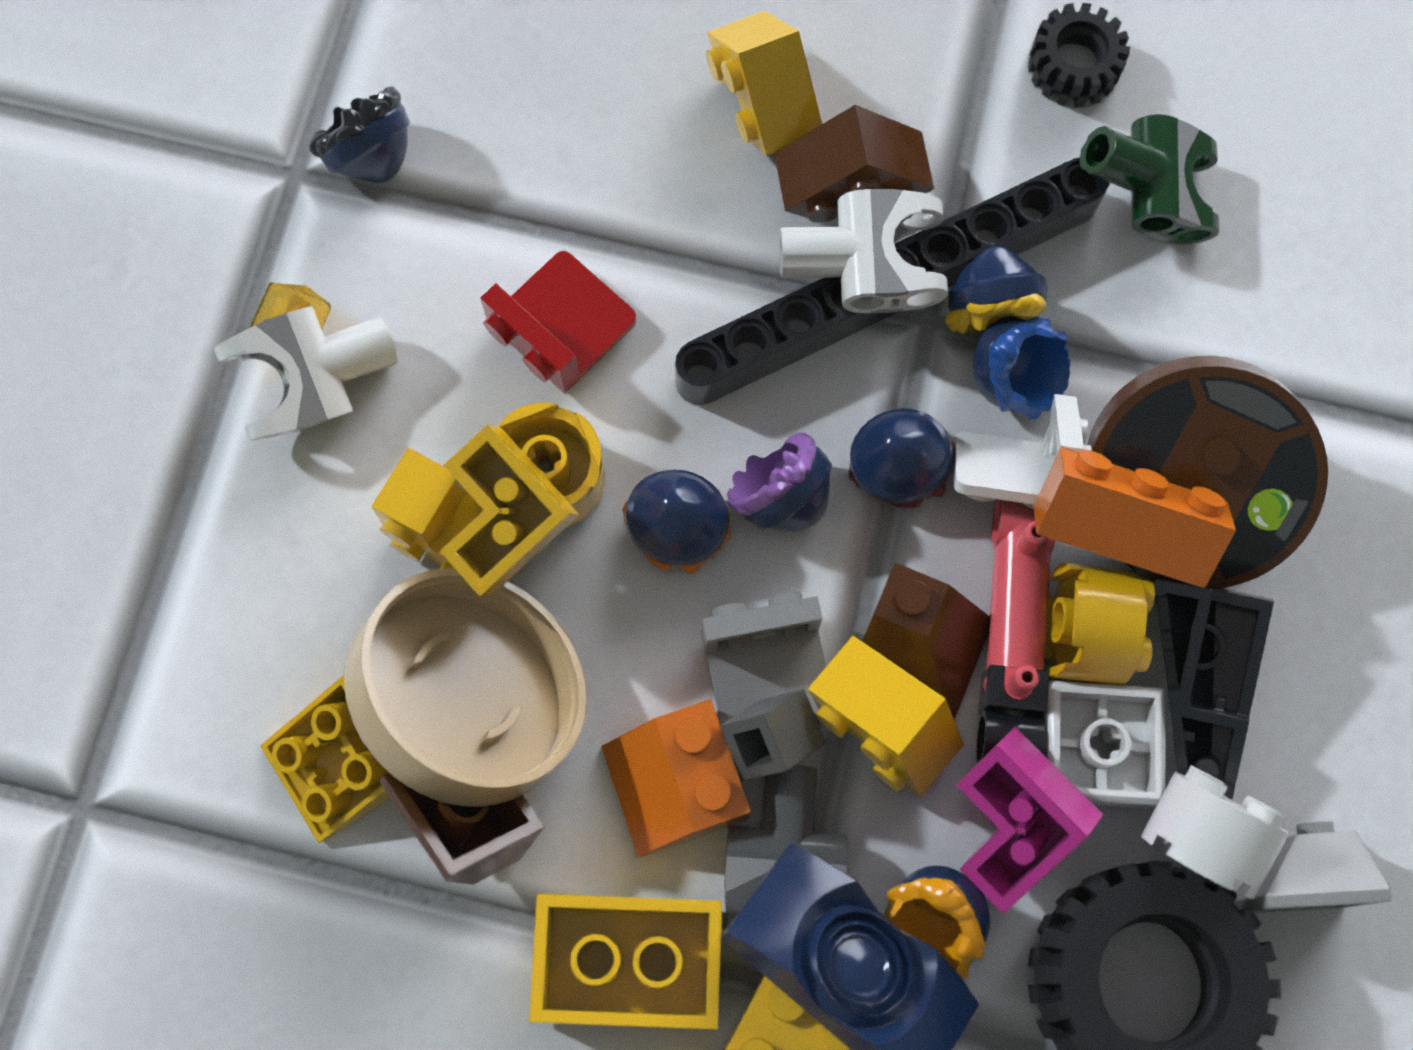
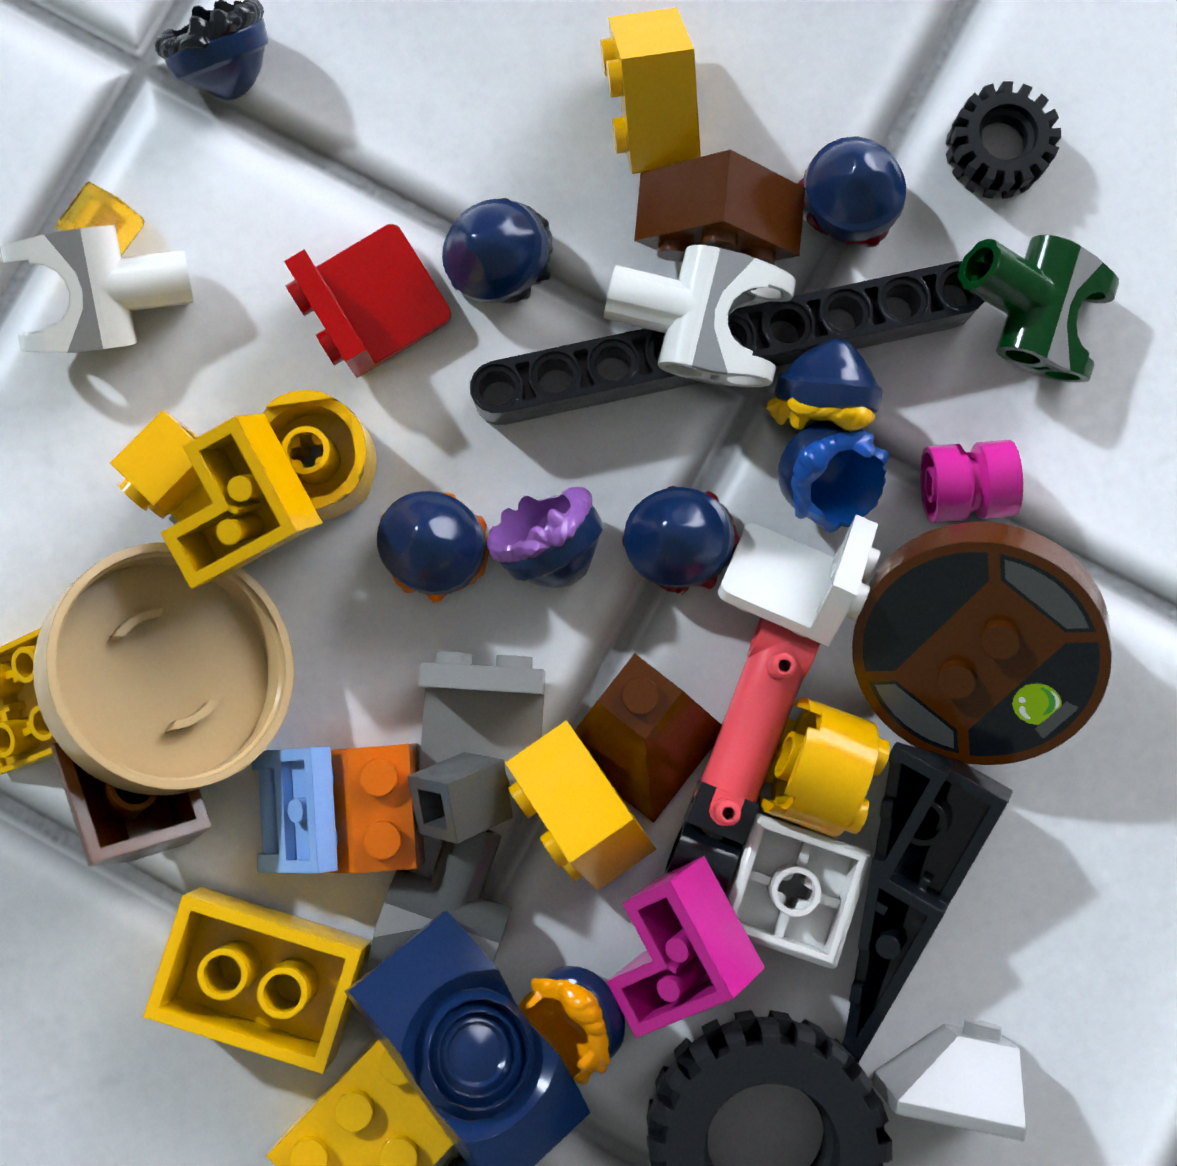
camera: 20 degrees right, 10 degrees up
(619, 792) = (297, 811): none -> light blue plate
(664, 250) = (498, 251): none -> dark blue hair
(965, 125) = (854, 191): none -> dark blue hair
(1134, 516) = (888, 678): orange brick -> none
(1138, 343) = (977, 481): none -> dark pink wheel
(1217, 833) = (871, 1019): white brick -> none

